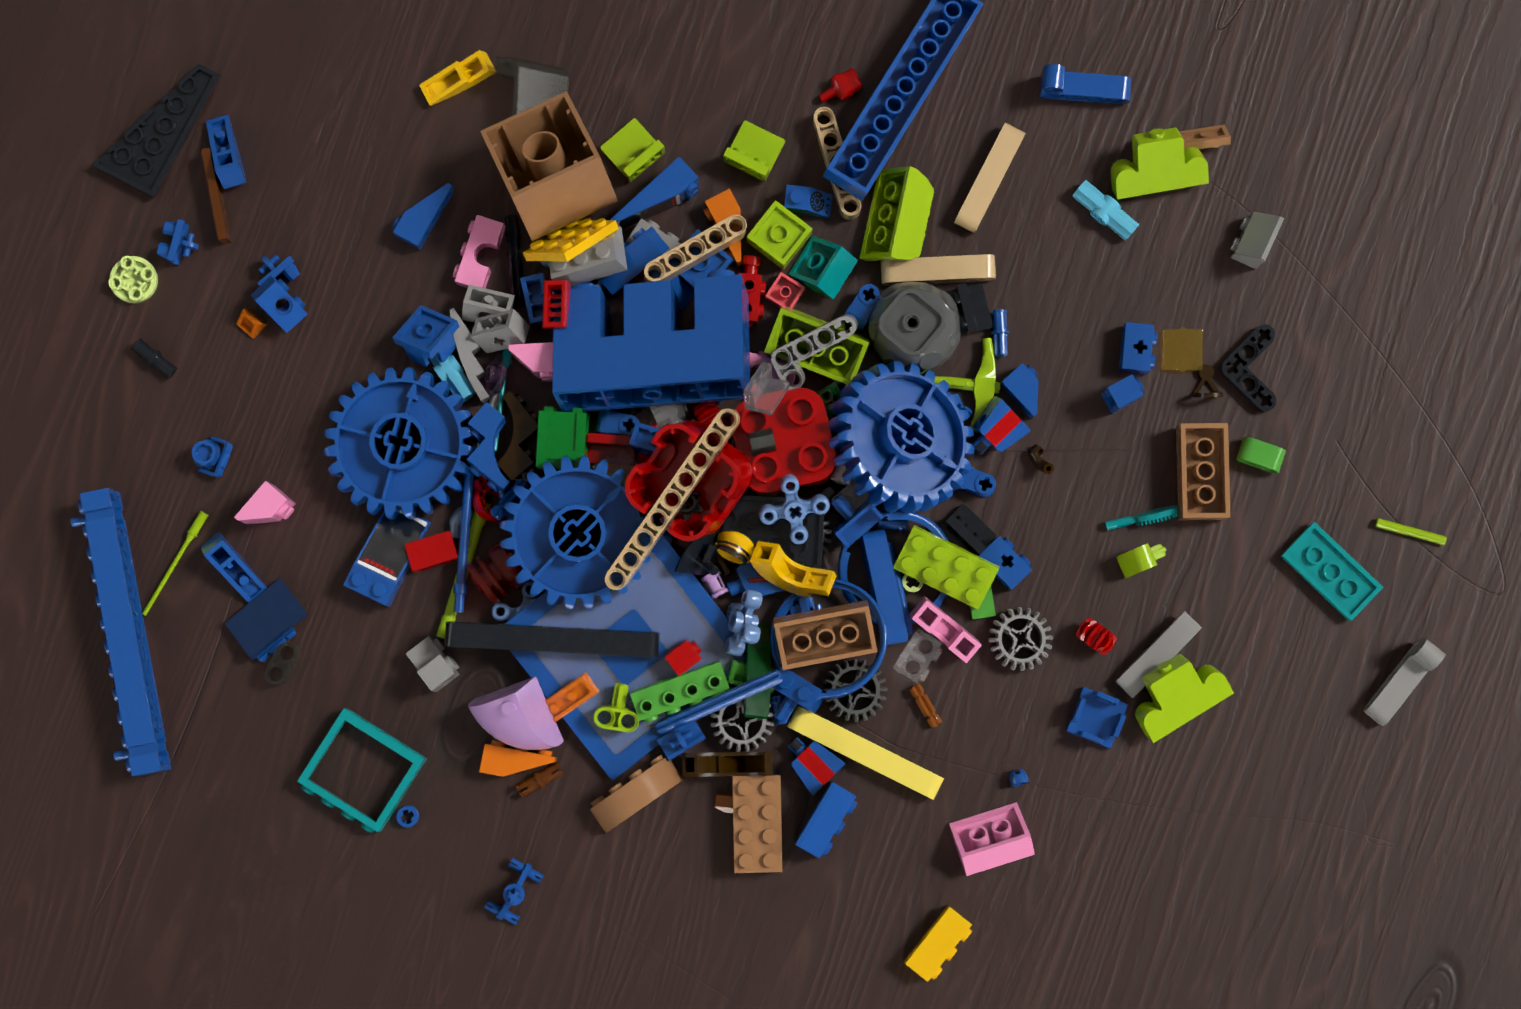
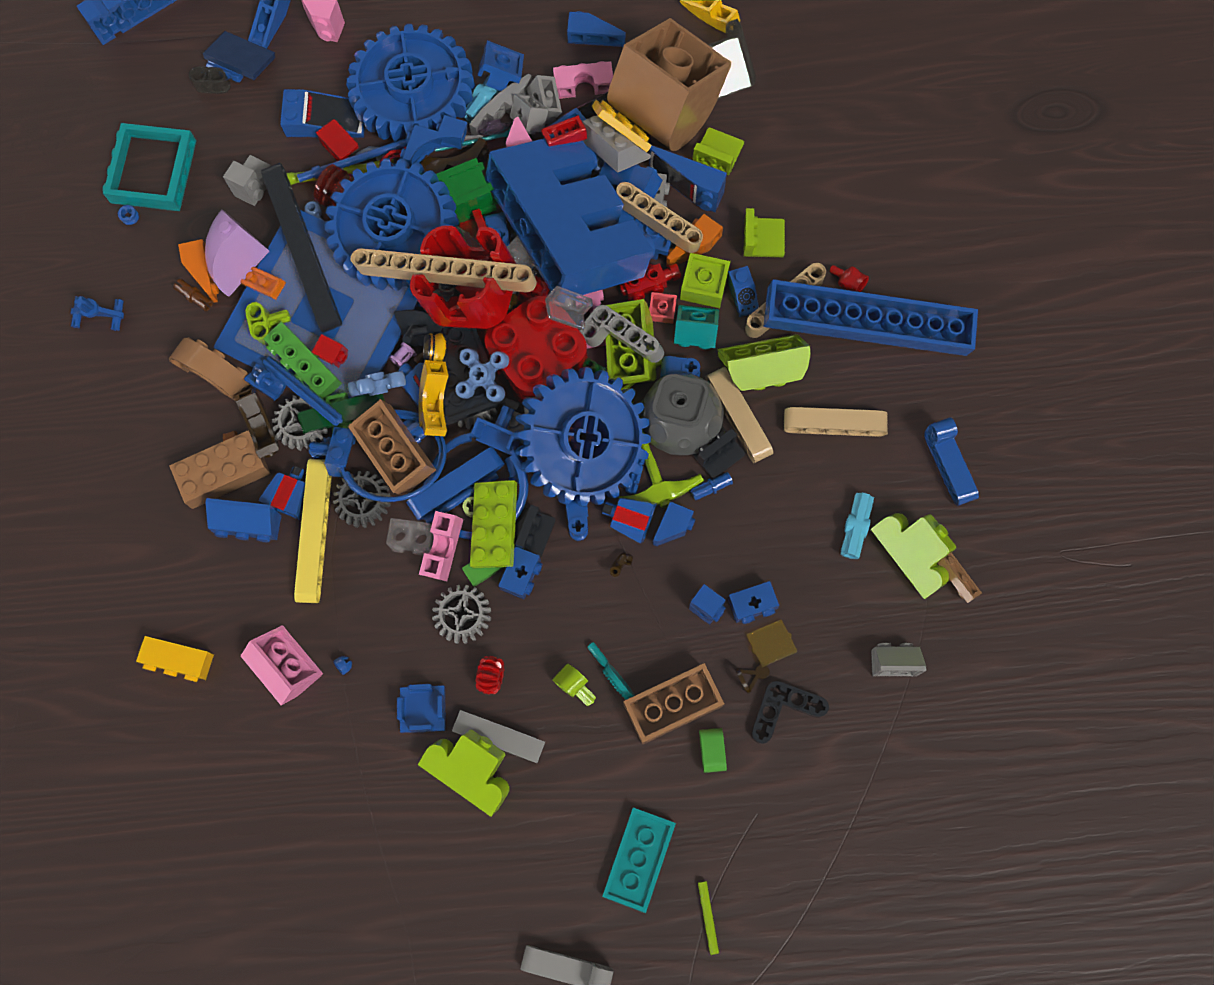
camera: 70 degrees right, 10 degrees down
(762, 441) = (524, 324): pearl dark grey tile -> none
(925, 705) = (373, 562): dark orange axle -> none

